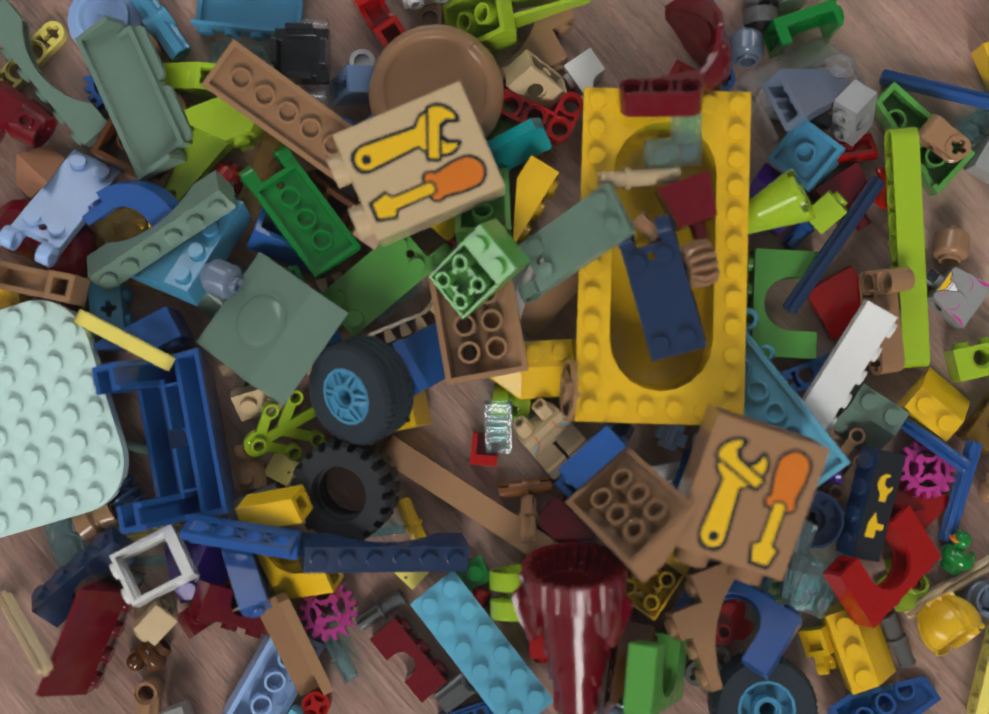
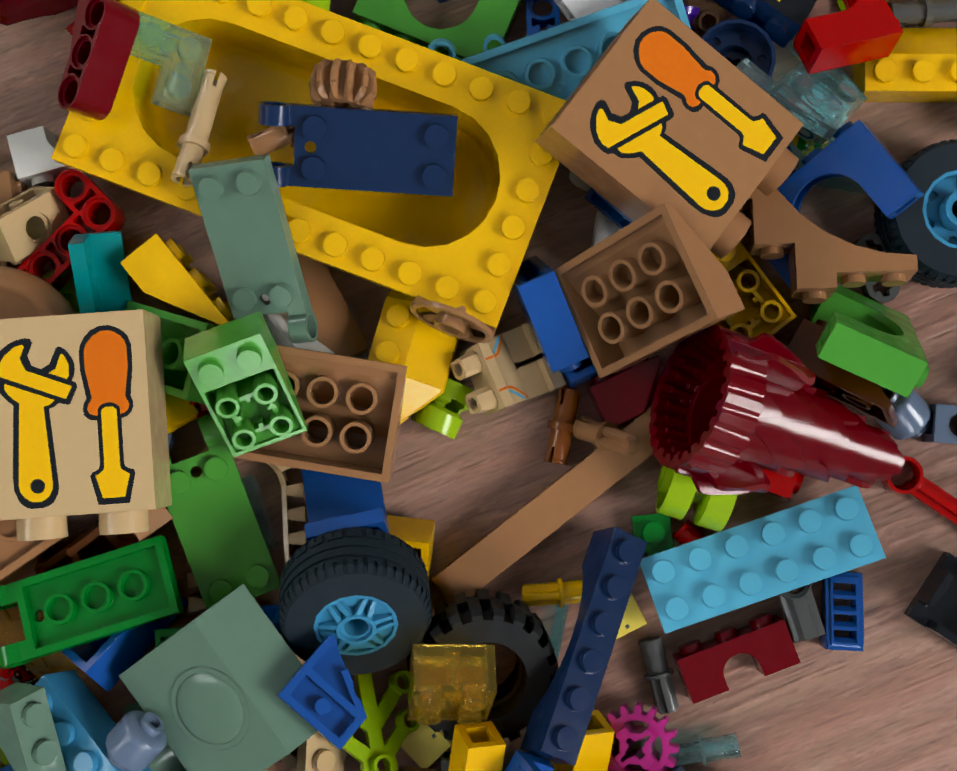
camera: 75 degrees left, 0 degrees up
(294, 392) = (325, 694): none -> blue wing
(329, 473) = (451, 683): none -> clear yellow slope
(478, 453) = (493, 462): red panel -> none
(495, 439) = (489, 441): clear light blue slope -> none
(671, 436) = (561, 210): light blue gear -> none
(689, 203) = (258, 71): dark red torso -> none
(733, 621) = (833, 214): red plate -> none
(818, 644) = (897, 114): yellow plate -> none

